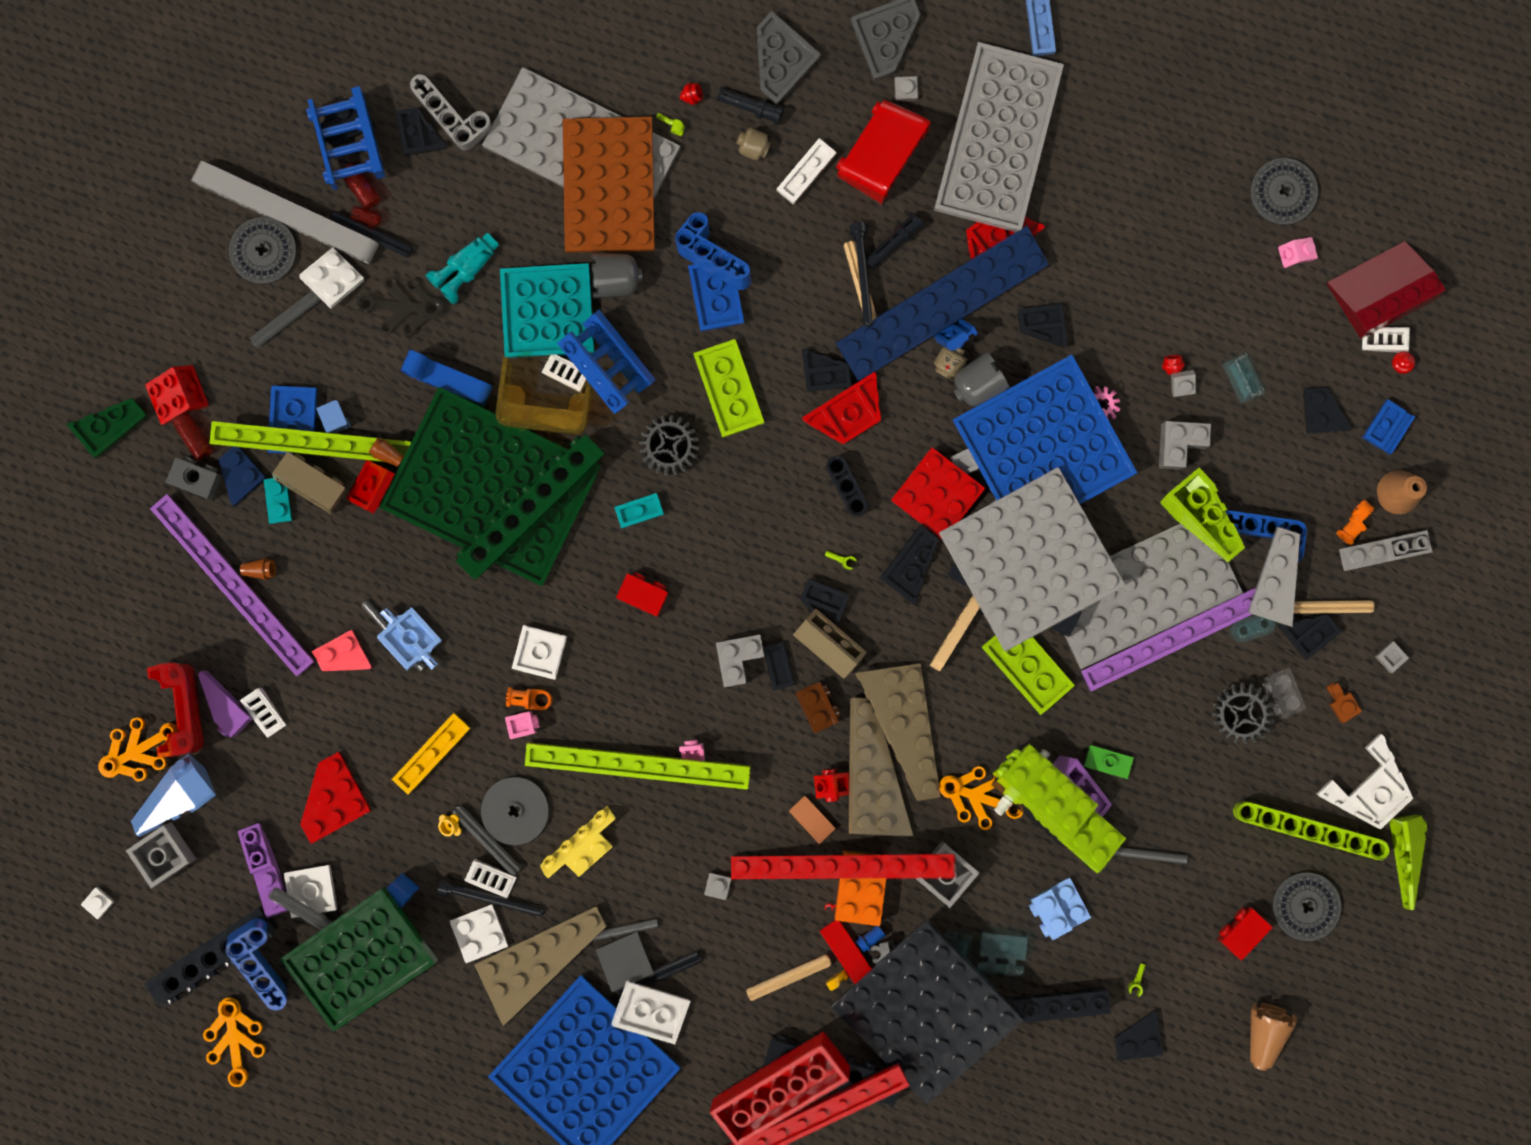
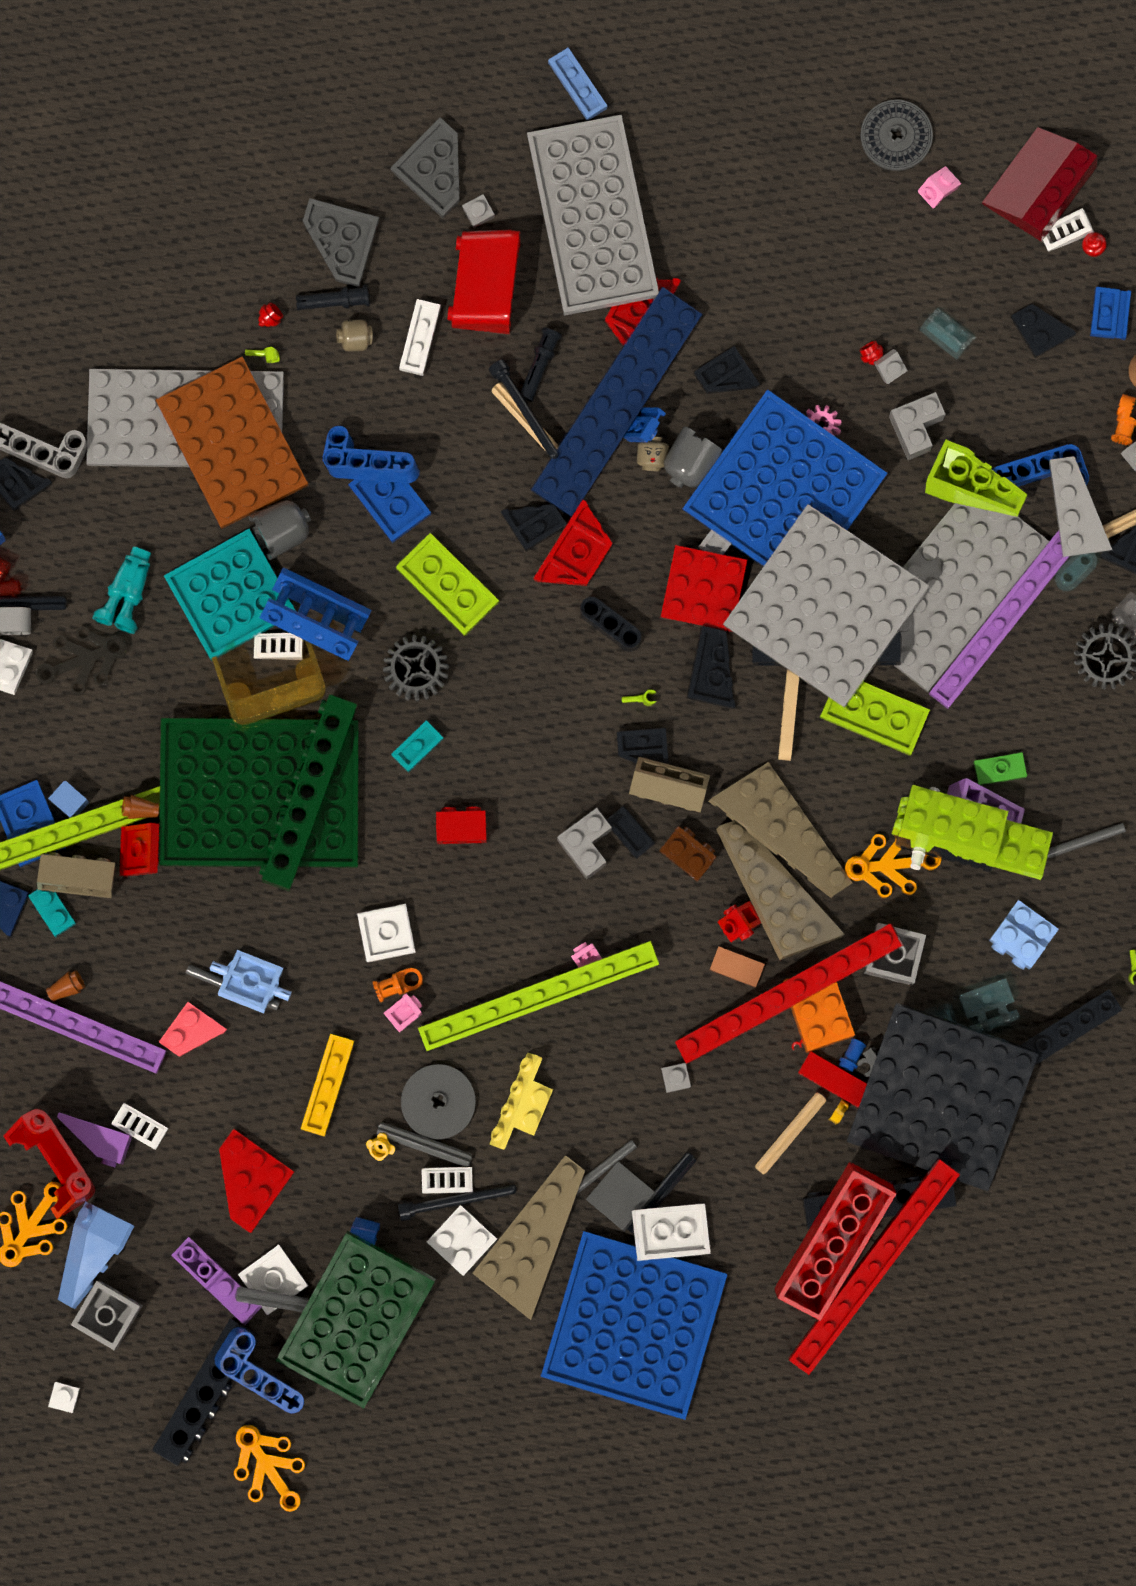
camera: 25 degrees left, 5 degrees down
(439, 375) = (153, 708): blue beam -> none

